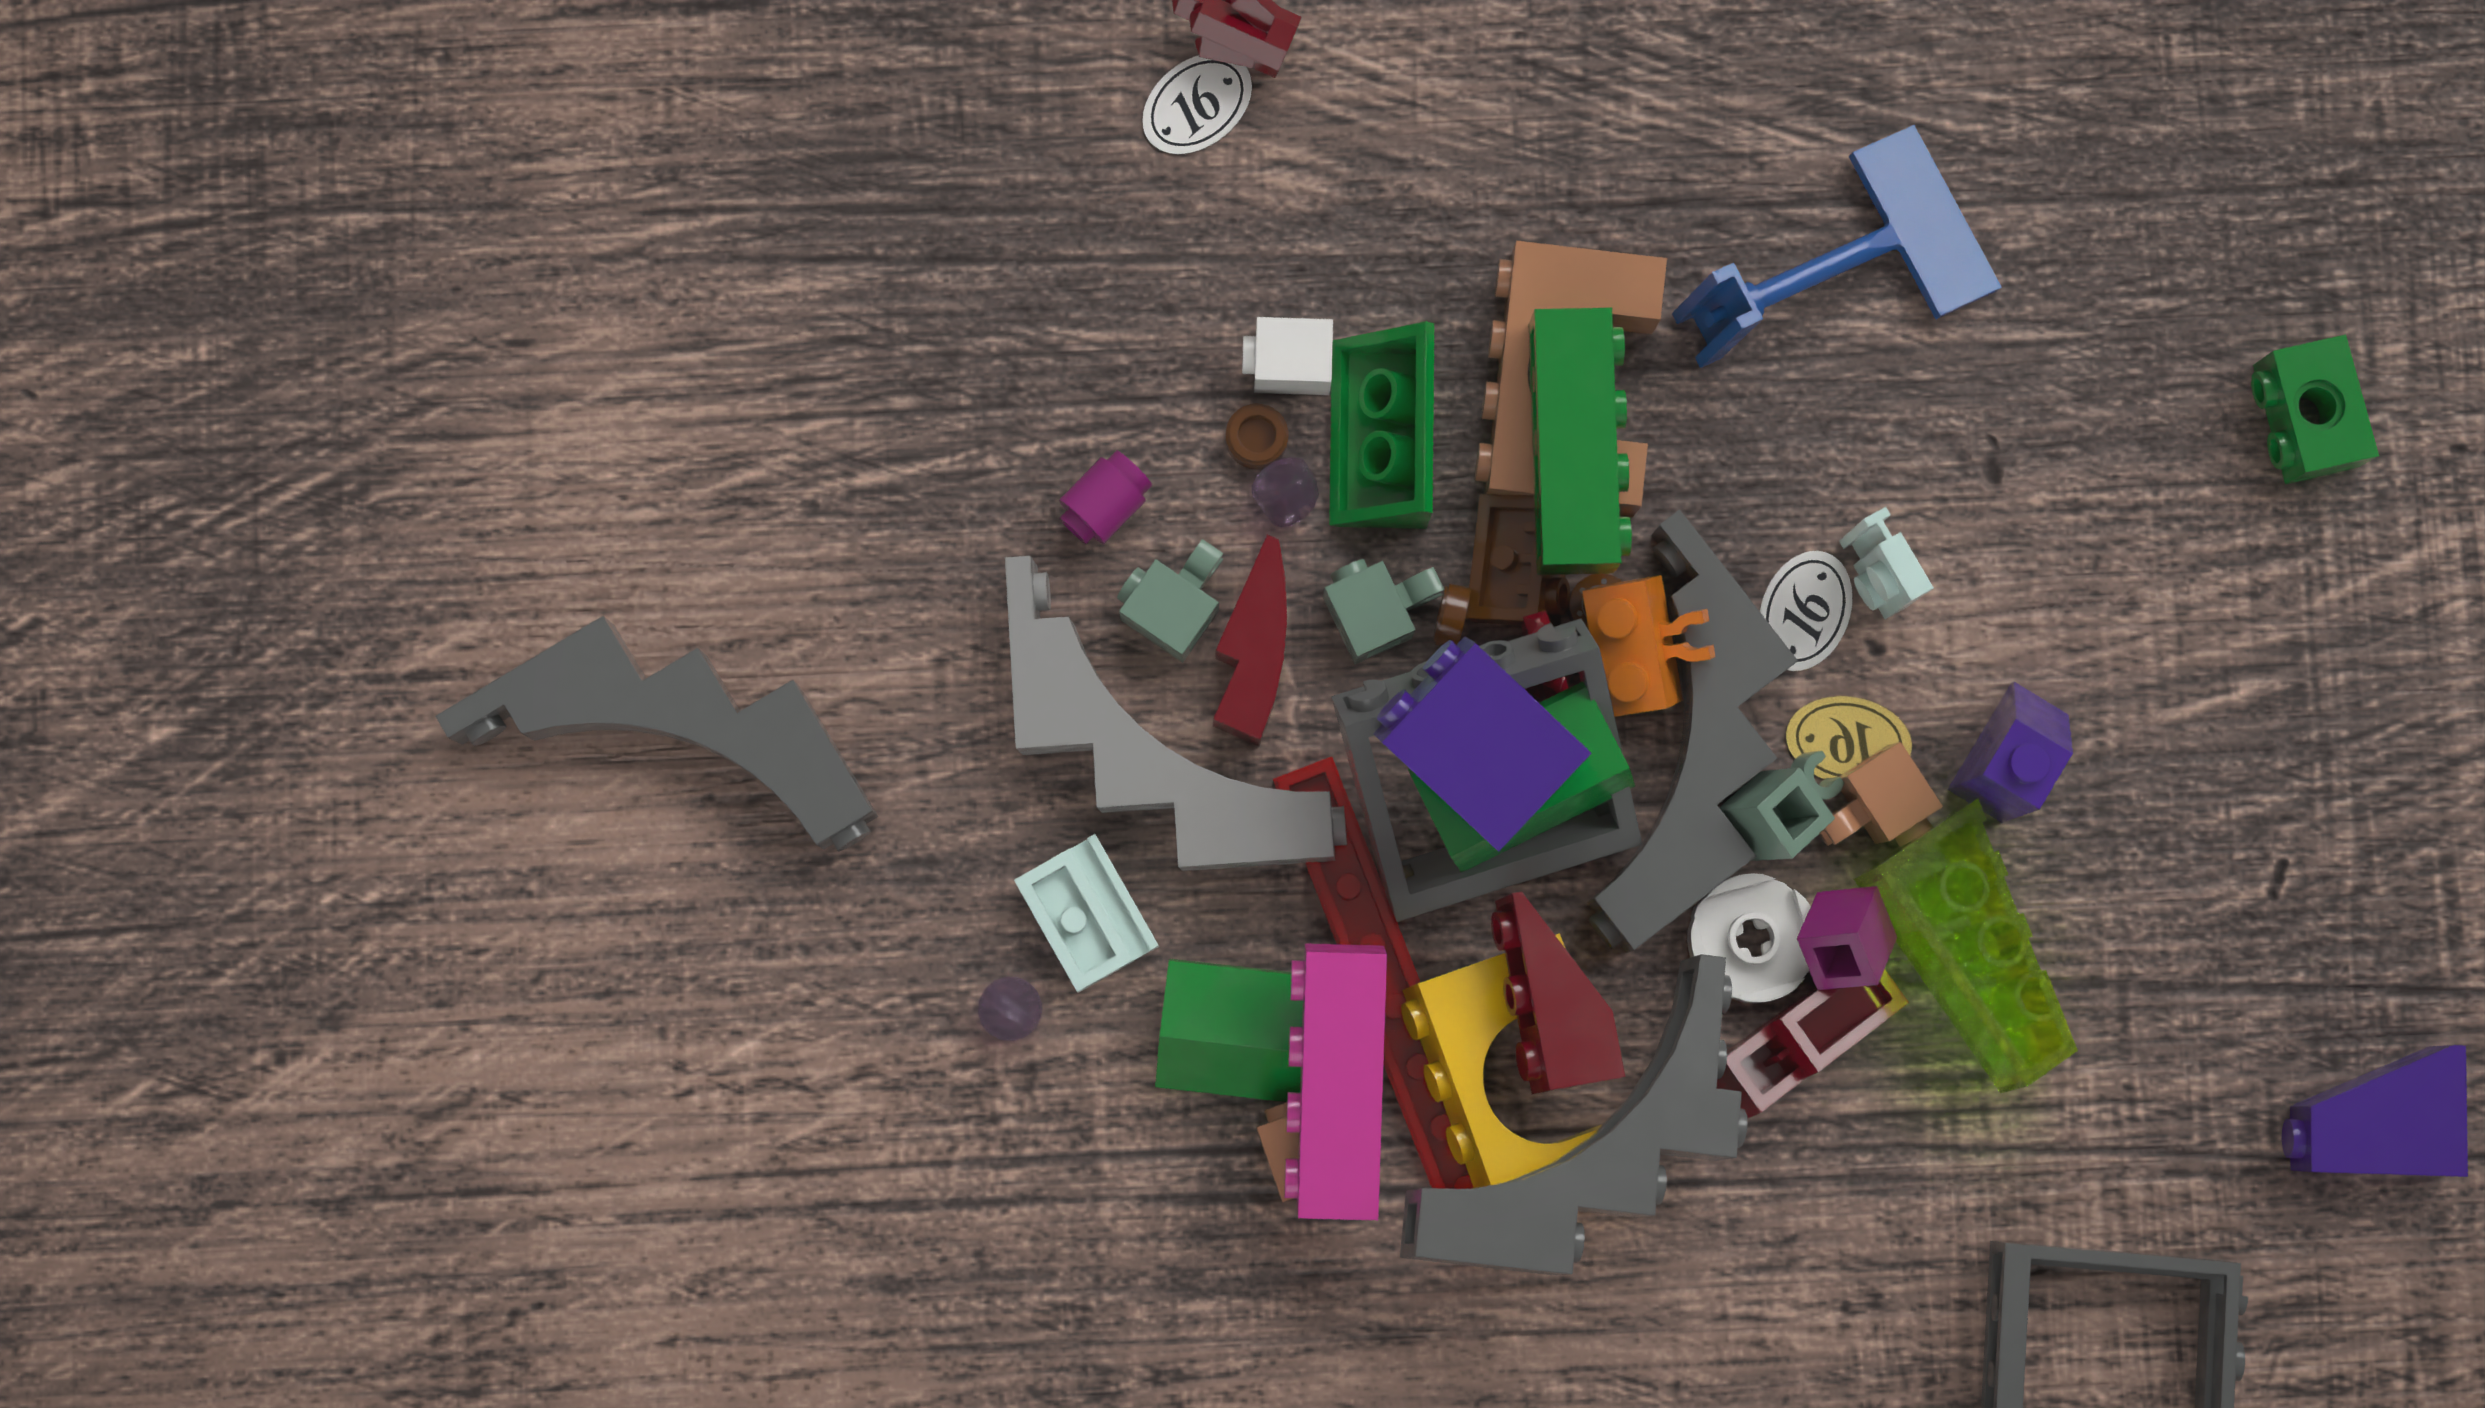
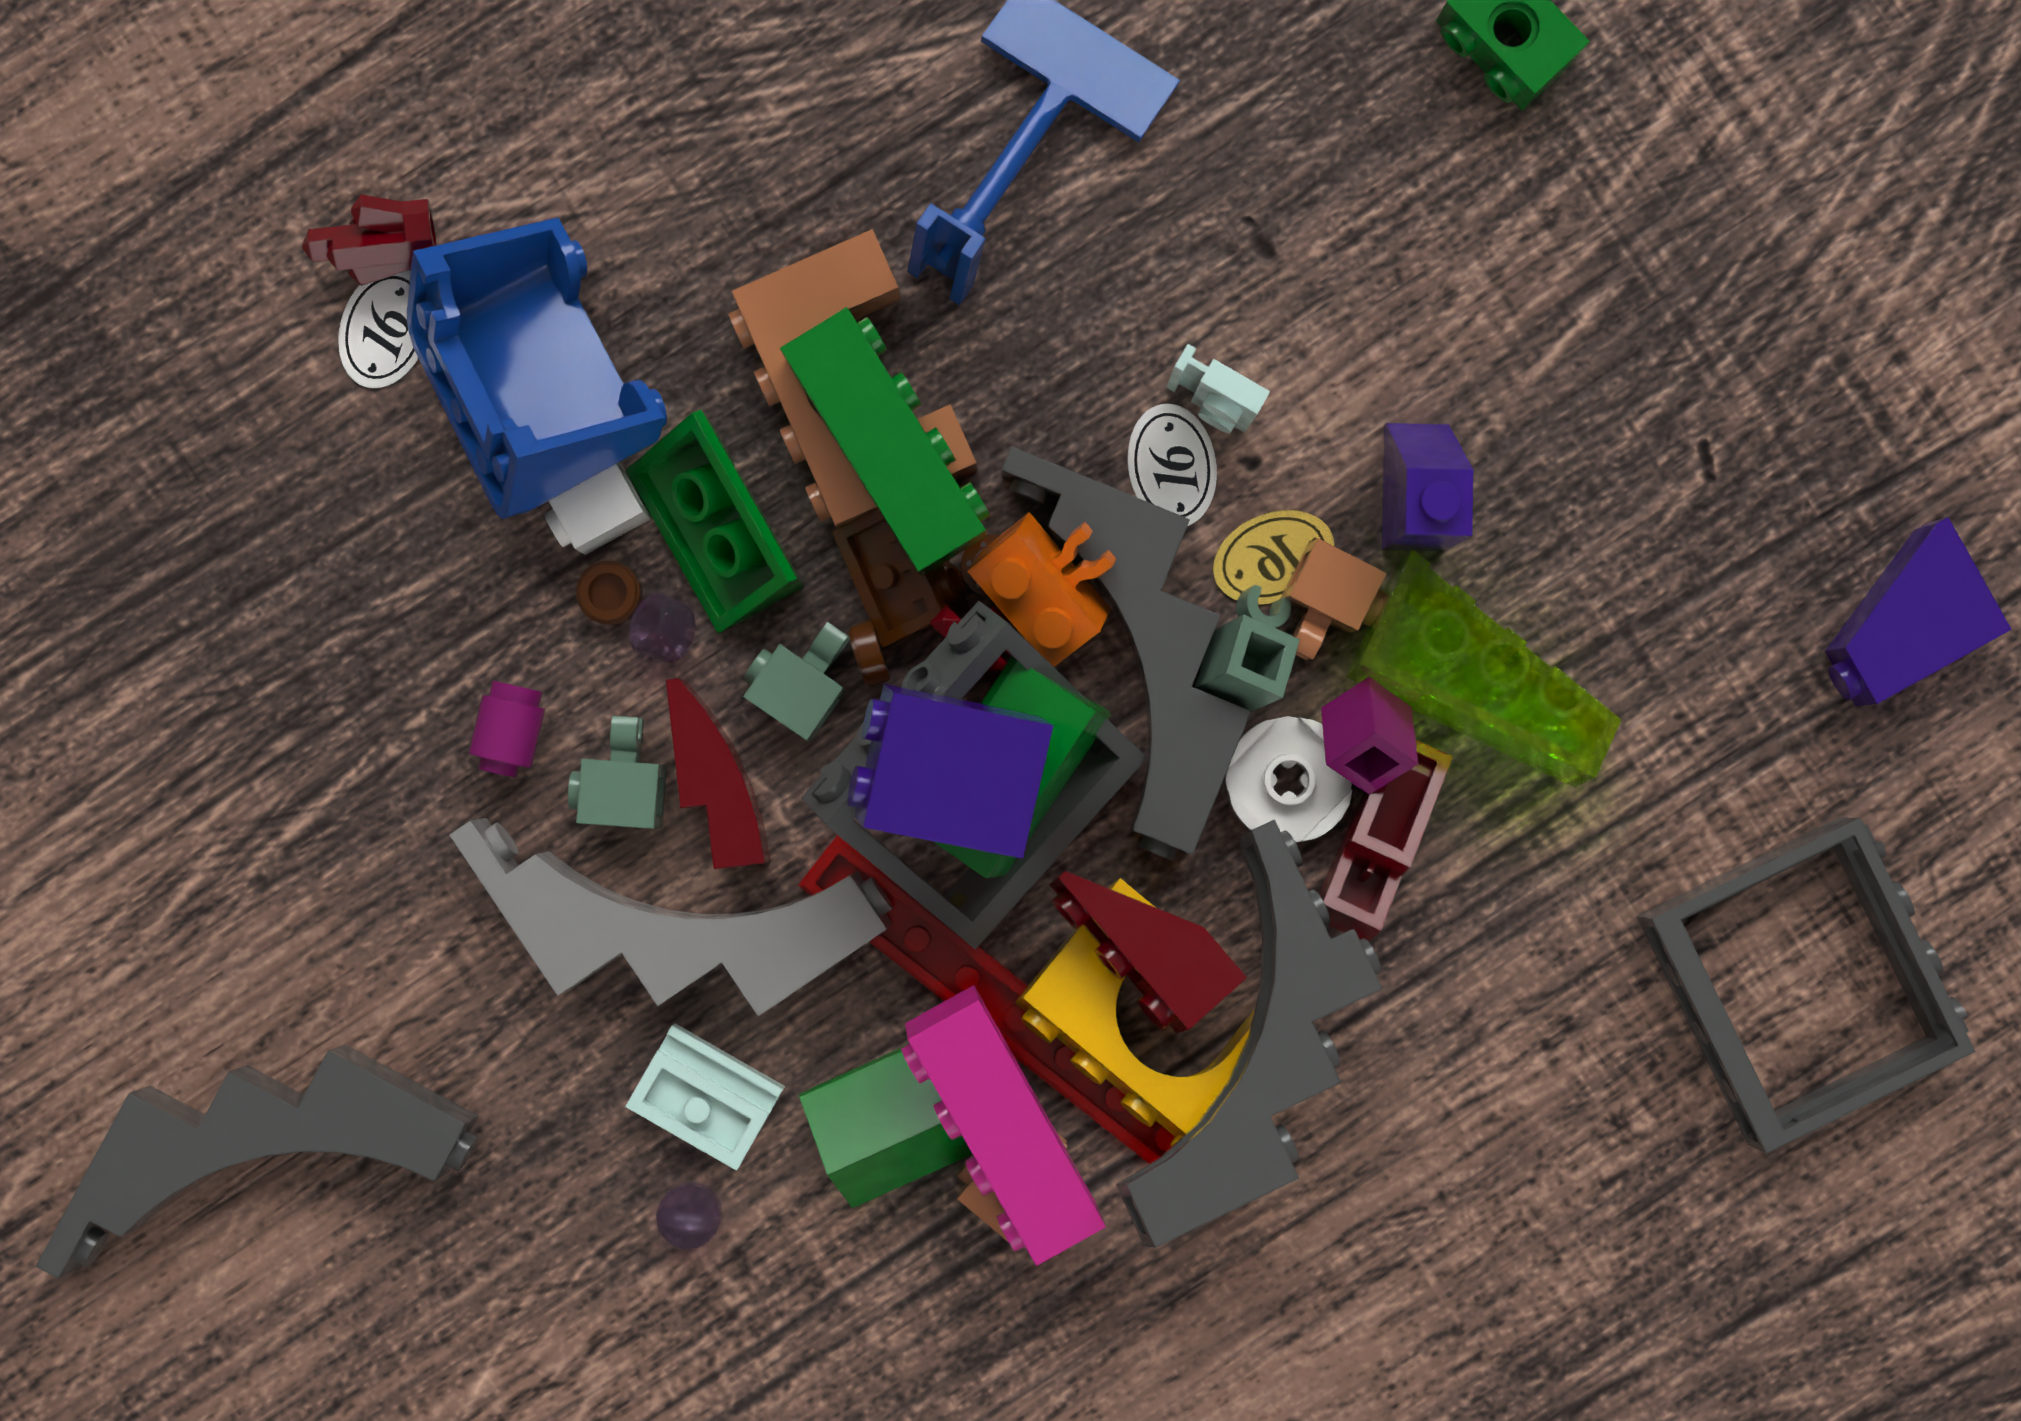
camera: 30 degrees left, 5 degrees up
(1301, 200) = (524, 364): none -> blue windscreen

